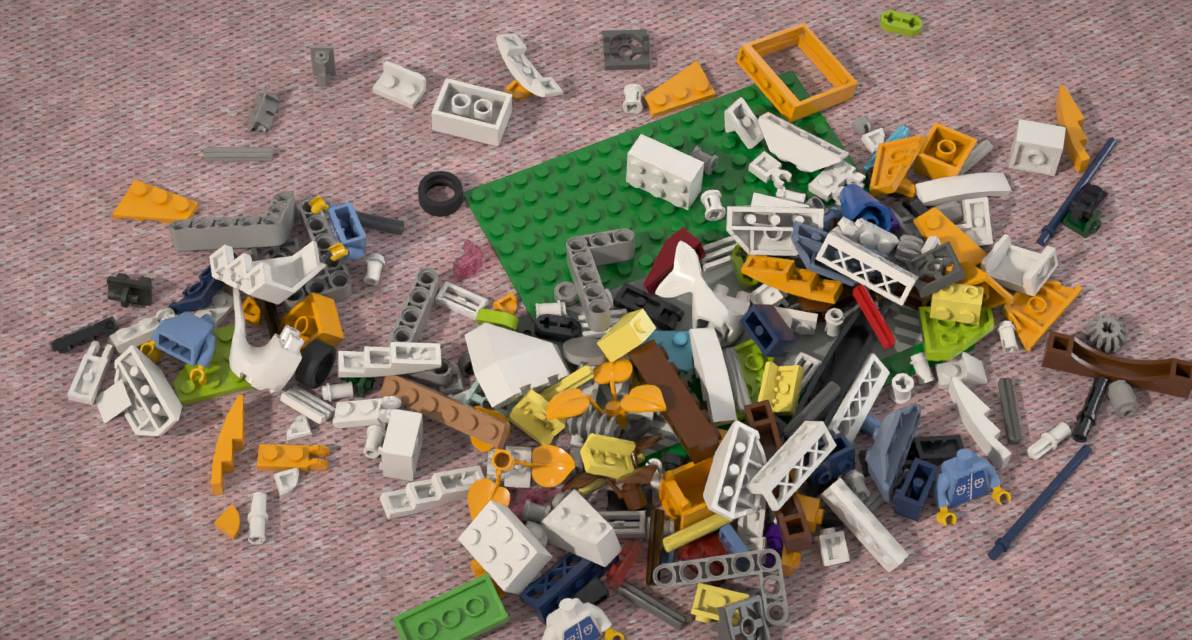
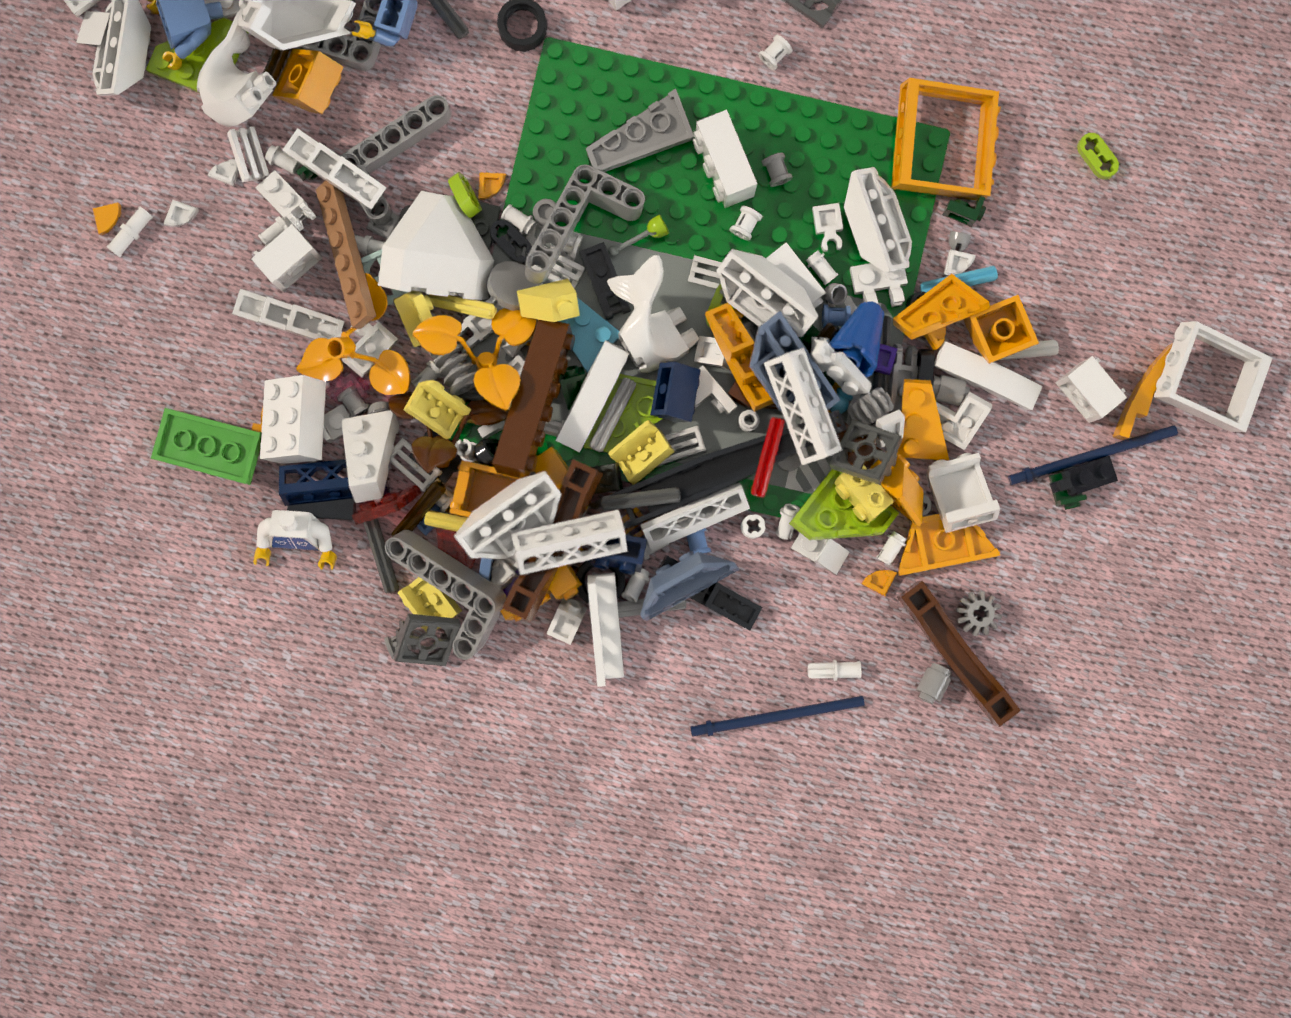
camera: 45 degrees right, 30 degrees up
(230, 439) = (162, 137): light orange slope -> none
(287, 457) = (198, 192): light orange hinge -> none
(315, 364) = (276, 122): black tyre -> none
(375, 265) = (405, 59): white pin -> none
(458, 300) = (447, 127): white tile -> none
(469, 263) = (486, 118): clear pink bracket -> none
(591, 200) = (643, 135): none -> light grey wing
(652, 249) = (655, 228): none -> hinge
(656, 452) = (488, 431): none -> white tile
(665, 260) = (674, 247): dark red slope -> none
(680, 91) = (827, 76): light orange wing -> none
(743, 121) = (844, 158): white slope -> none
(850, 107) = (961, 212): none -> dark green bracket
(915, 490) = (676, 629): dark blue brick -> none
(964, 480) = (725, 653): torso -> none
(974, 416) = (791, 598): white slope -> none
(1009, 411) = (829, 616): dark grey axle -> none
(1020, 364) = (879, 581): none -> light orange tile
(1087, 417) = (888, 674): black pin -> none
(1139, 100) = (1247, 387): none -> white window

